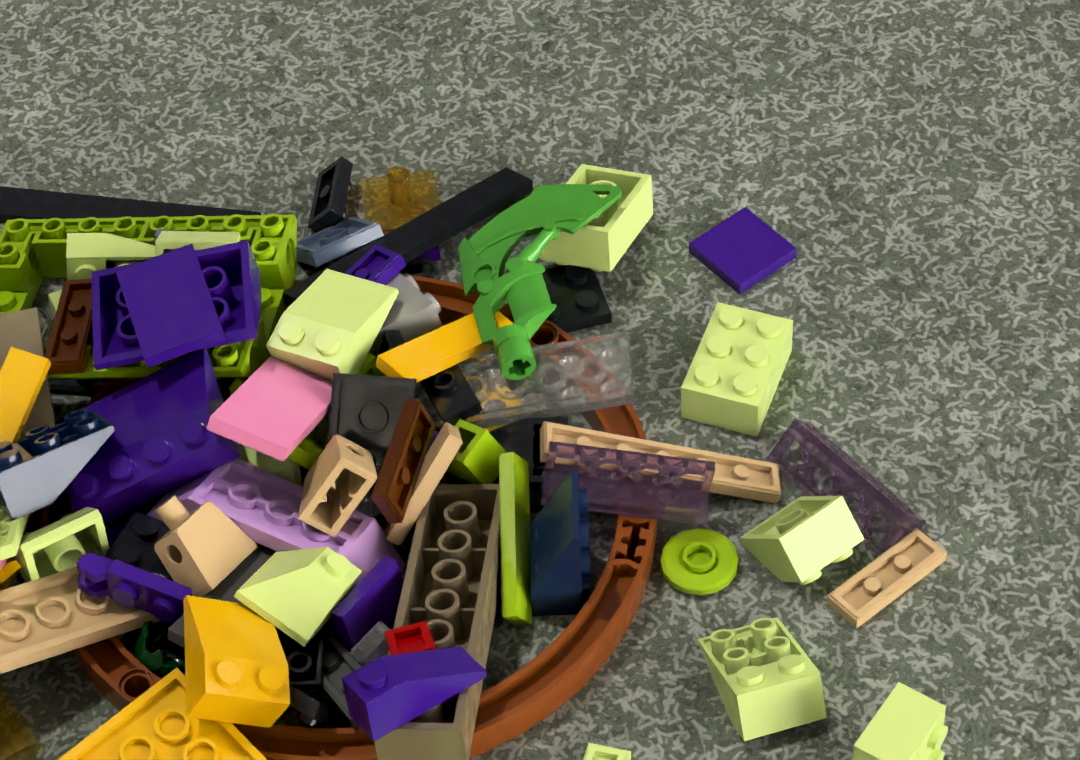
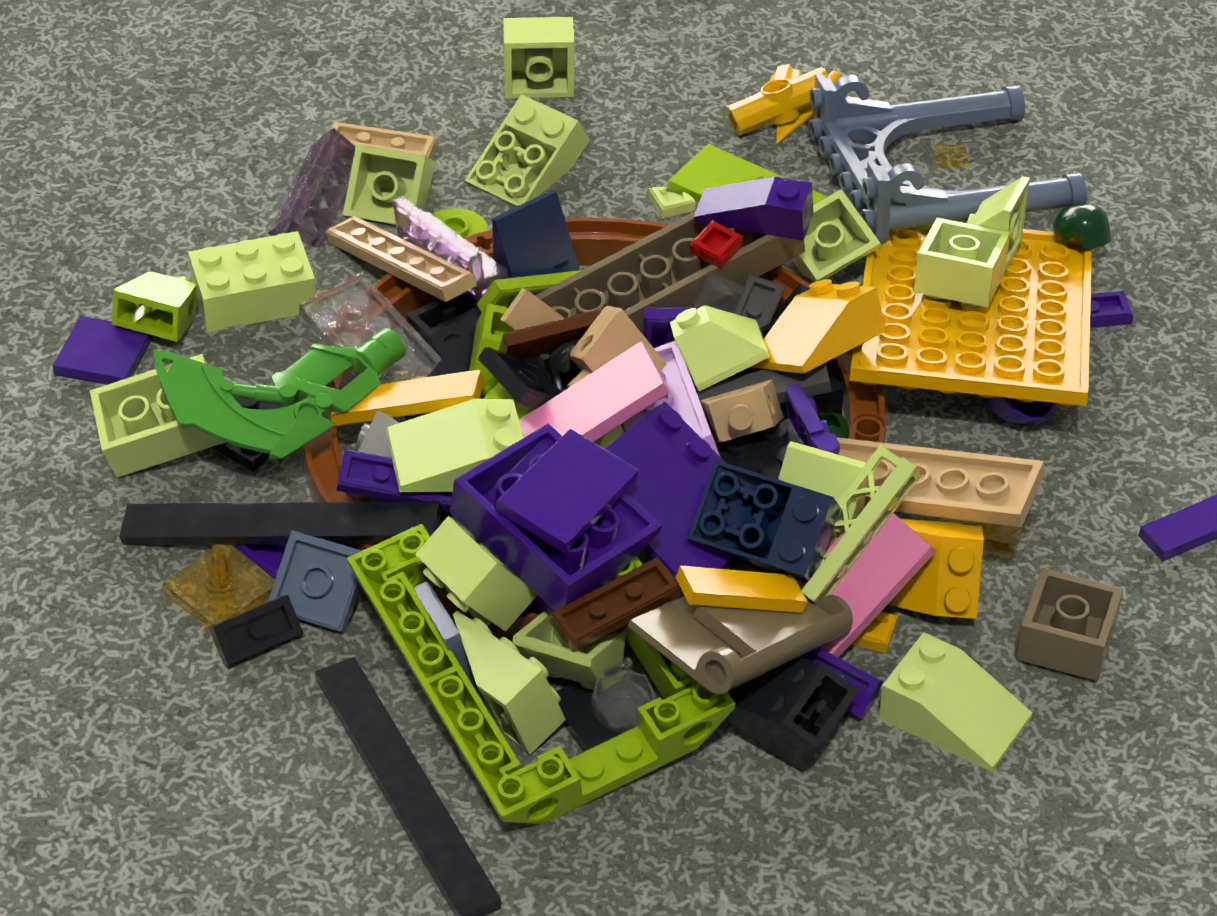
camera: 130 degrees left, 5 degrees down
(754, 283) = (155, 305): none -> lime torso

